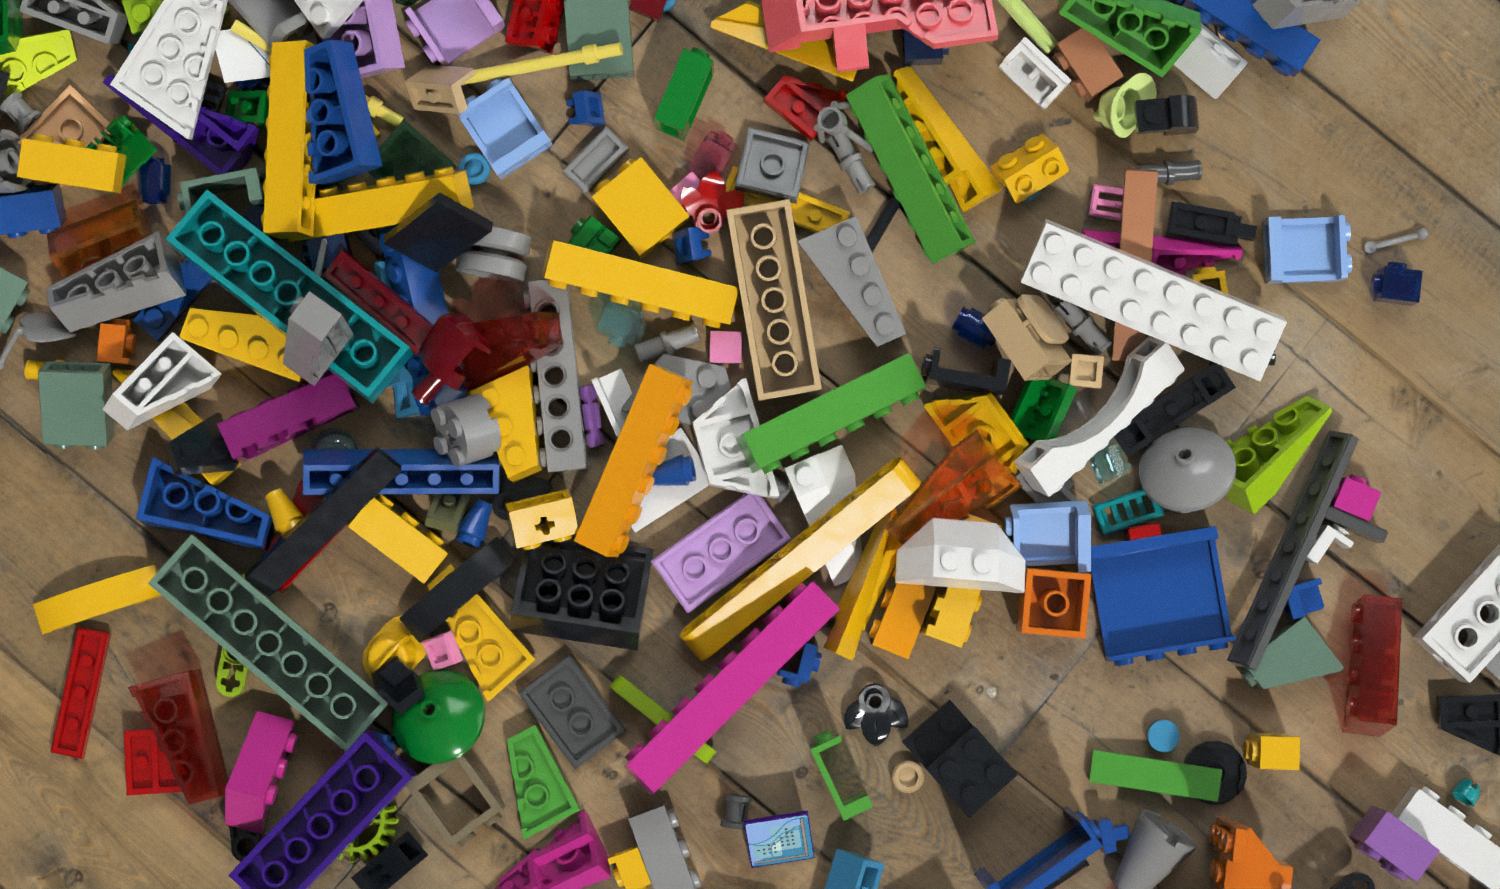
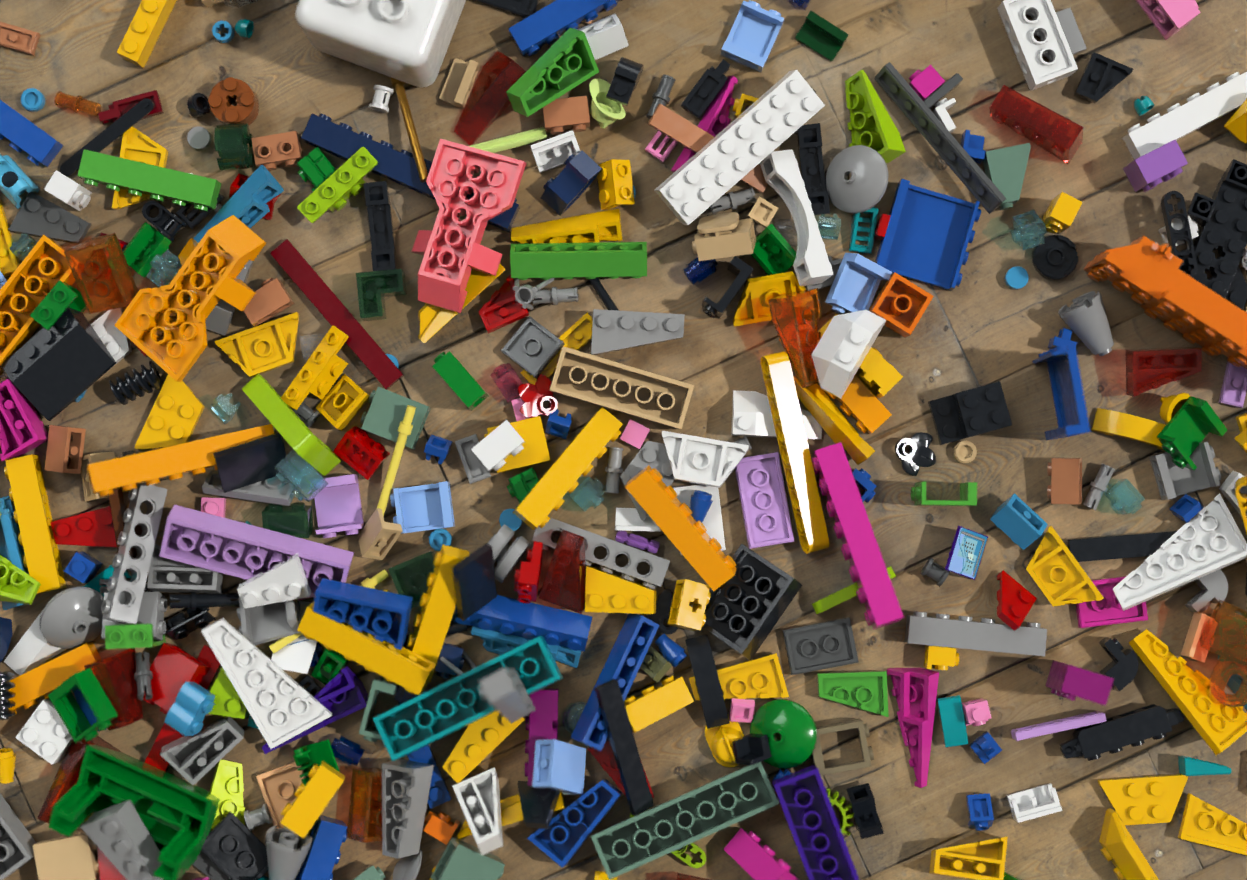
camera: 65 degrees left, 0 degrees up
(259, 453) = (559, 766): none -> light blue panel
(283, 511) = (604, 770): yellow cone -> none
(379, 300) = (499, 641): dark red tile -> none
(444, 350) = (553, 614): dark red piece -> none
(466, 430) = (609, 626): light grey brick -> none
(483, 299) = (528, 575): none -> red plate
(540, 243) = (510, 519): none -> dark azure tile
(624, 181) = (499, 446): none -> white brick
(830, 413) = (712, 387): bright green brick -> none
(1004, 111) = (571, 182): none -> dark blue brick
(1155, 775) = (1039, 294): bright green tile -> none
(1231, 720) = (1028, 230): none -> clear light blue brick
(1349, 337) = (821, 36): none -> dark green panel

